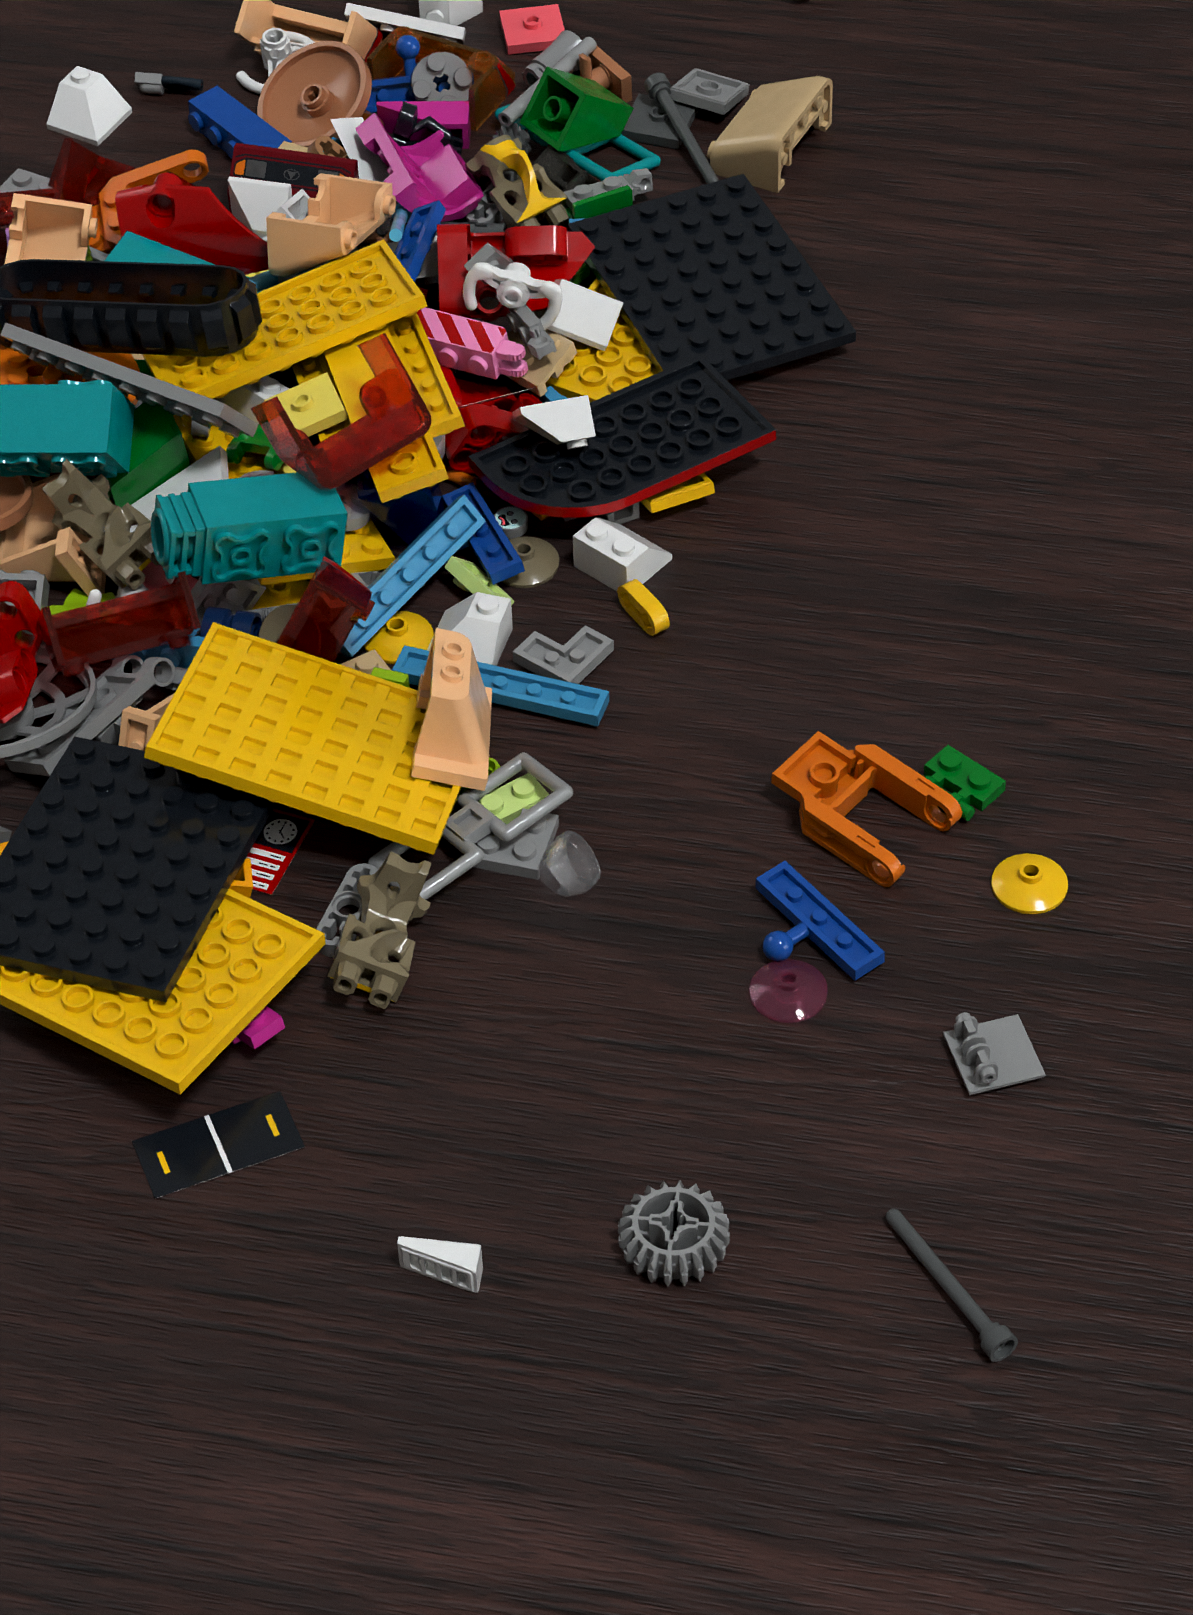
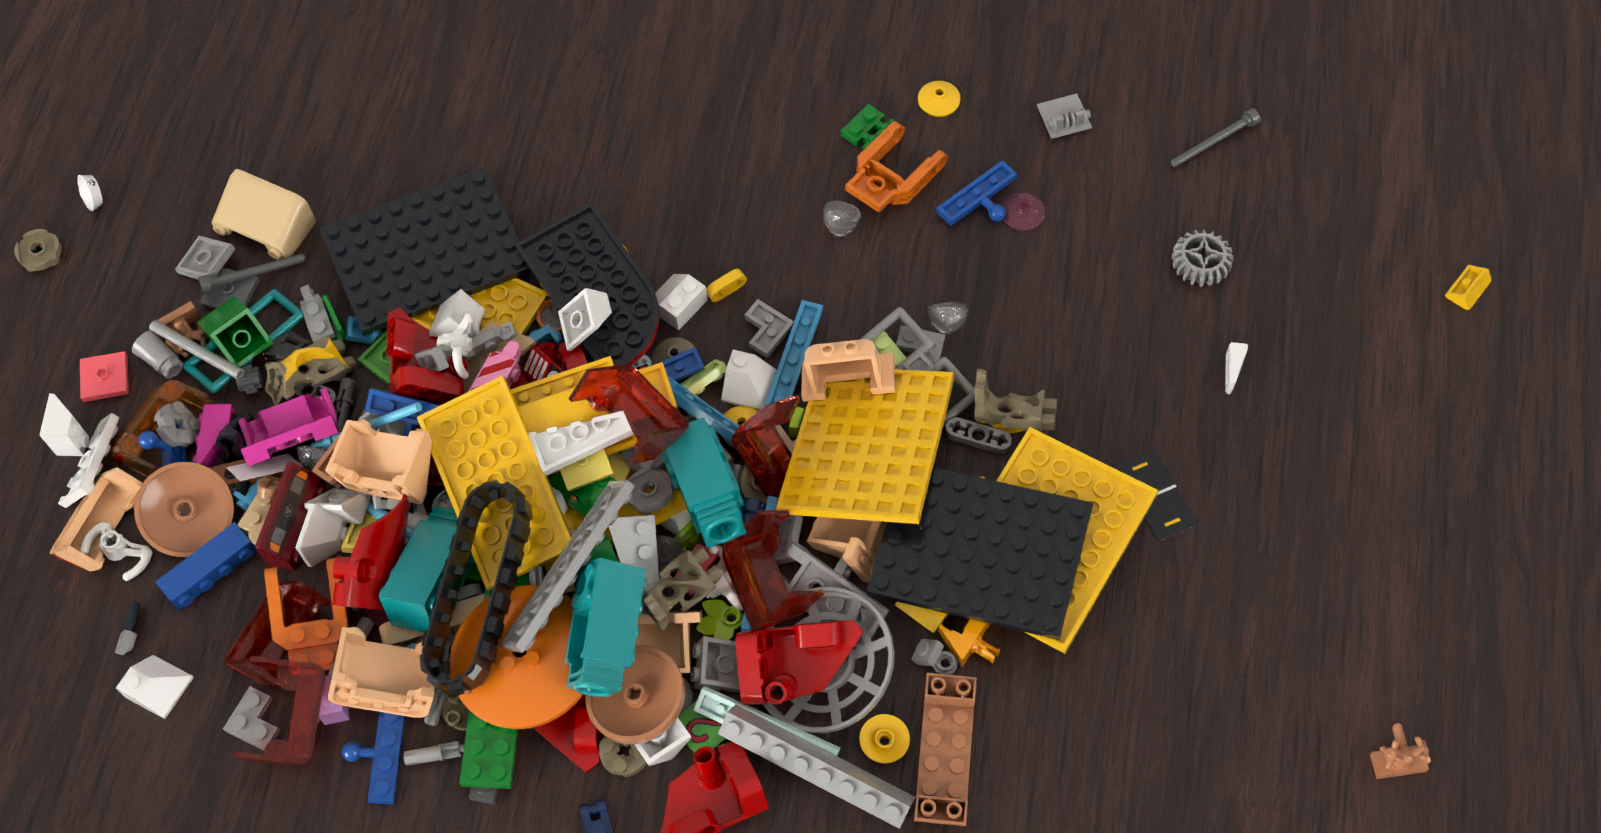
camera: 90 degrees left, 15 degrees up
(321, 384) = (569, 444): none -> white wing
(763, 731) = (840, 217): none -> clear hat

